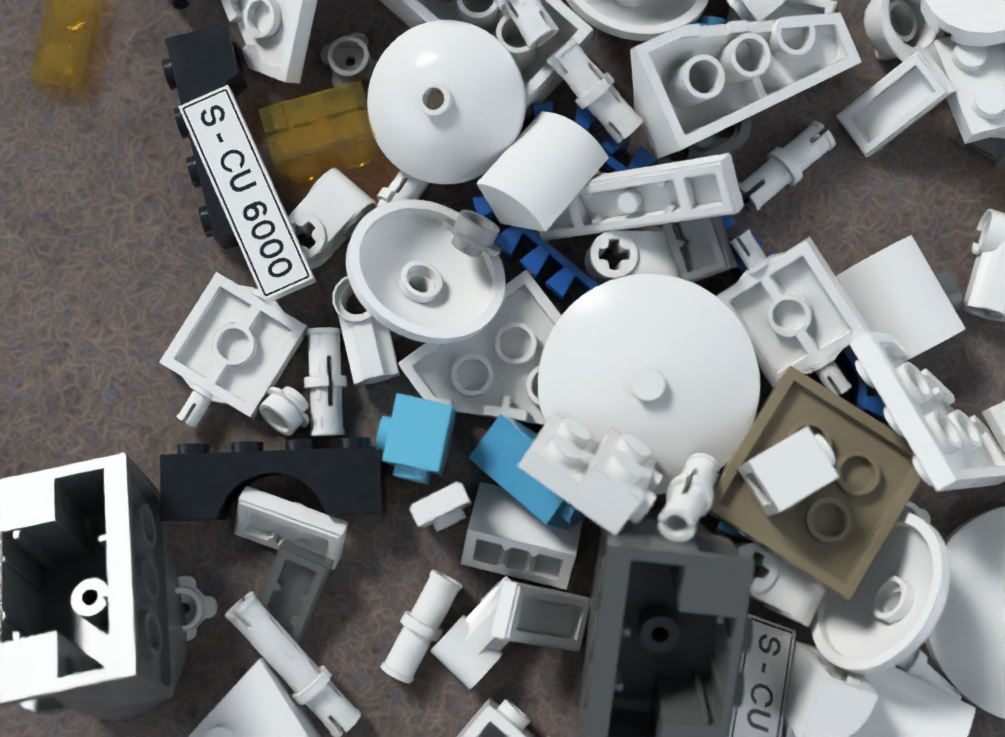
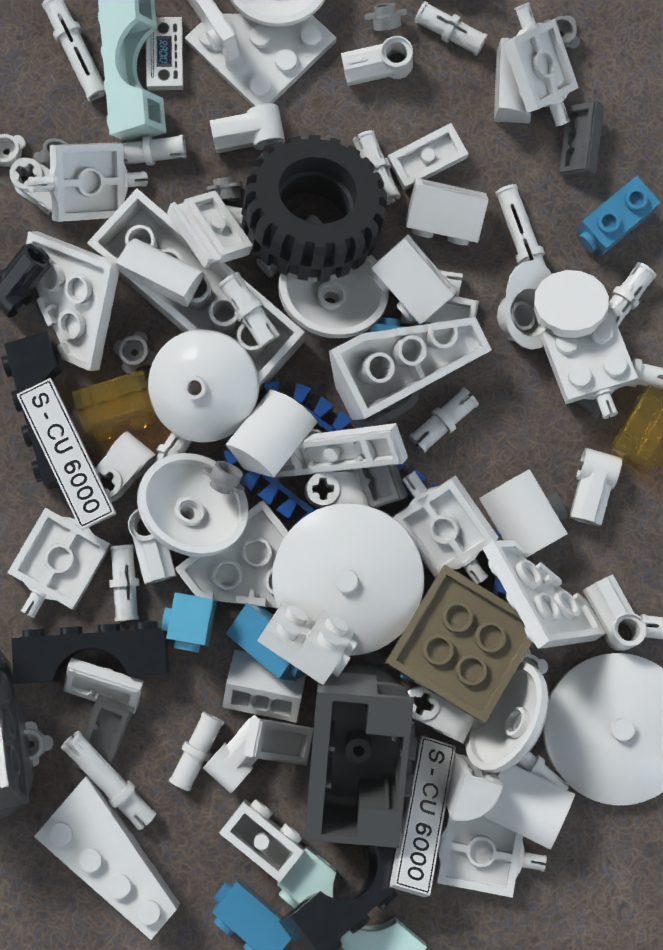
camera: 10 degrees left, 0 degrees up
(285, 410) = (96, 603): white plate -> none
(442, 507) = (208, 669): white plate -> none
(594, 90) = (306, 375): white pin -> none
(689, 497) = (374, 657): white pin -> none
(789, 471) = (441, 637): white brick -> none
(896, 102) = (518, 375): white tile -> none

